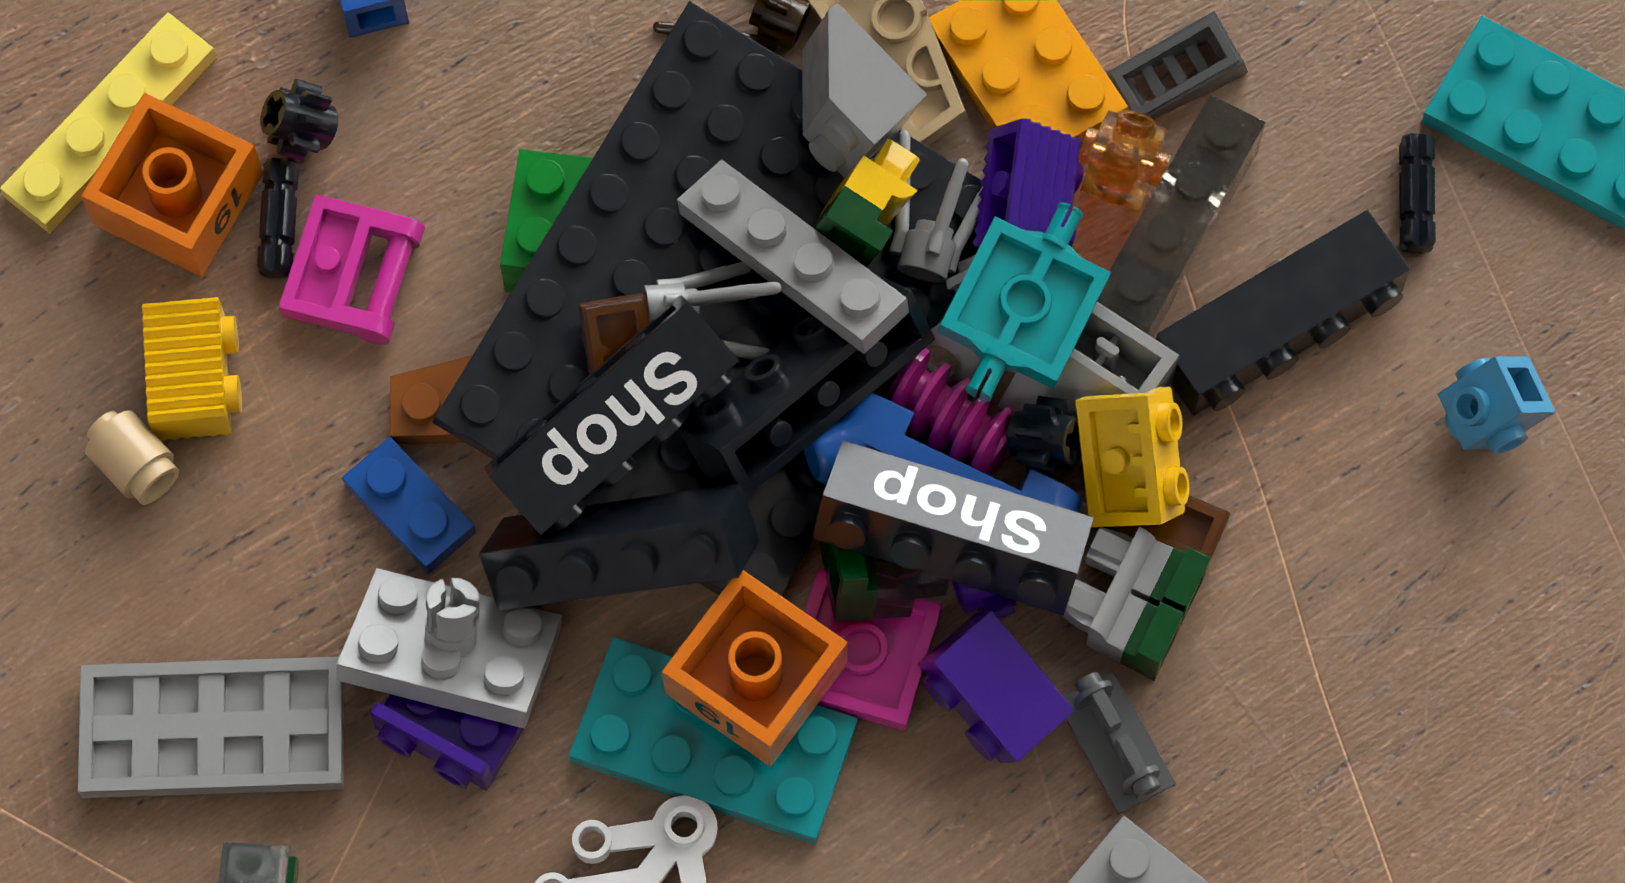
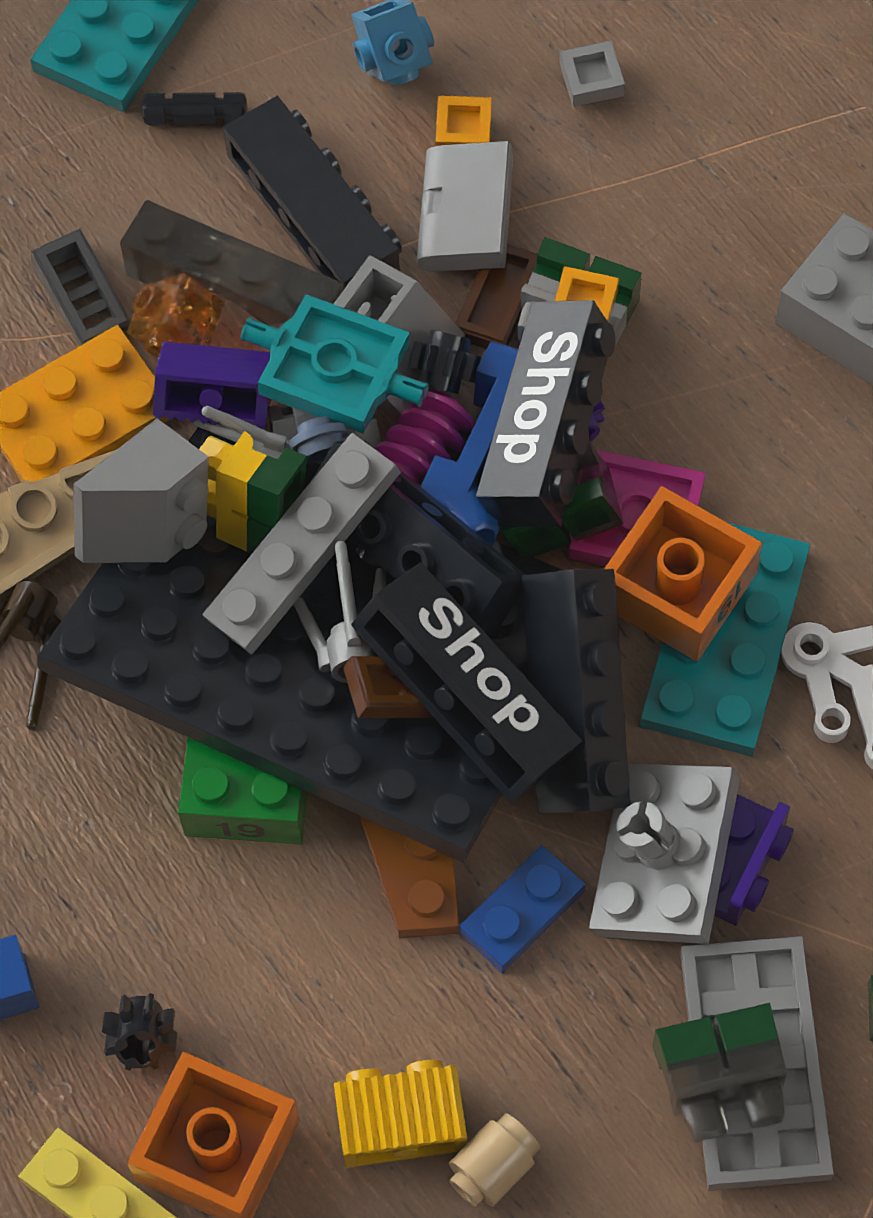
camera: 90 degrees left, 5 degrees down
(194, 673) = (701, 1084): none -> clear smoke hips
(277, 217) = (241, 1050): black axle -> none
(331, 263) = (283, 993): dark pink plate -> none
(930, 284) = (317, 438): none -> sand blue plate
(994, 689) = (670, 401): dark purple brick -> none
(1109, 587) = (586, 285): none -> light orange plate
(1116, 742) = (702, 320): dark grey hinge -> none
(1132, 458) = (463, 296): yellow bracket -> none
(1270, 482) = (465, 206): none -> light grey piece
(1386, 487) = (463, 120): none -> light orange plate
(1457, 637) = (592, 73): none -> light grey plate

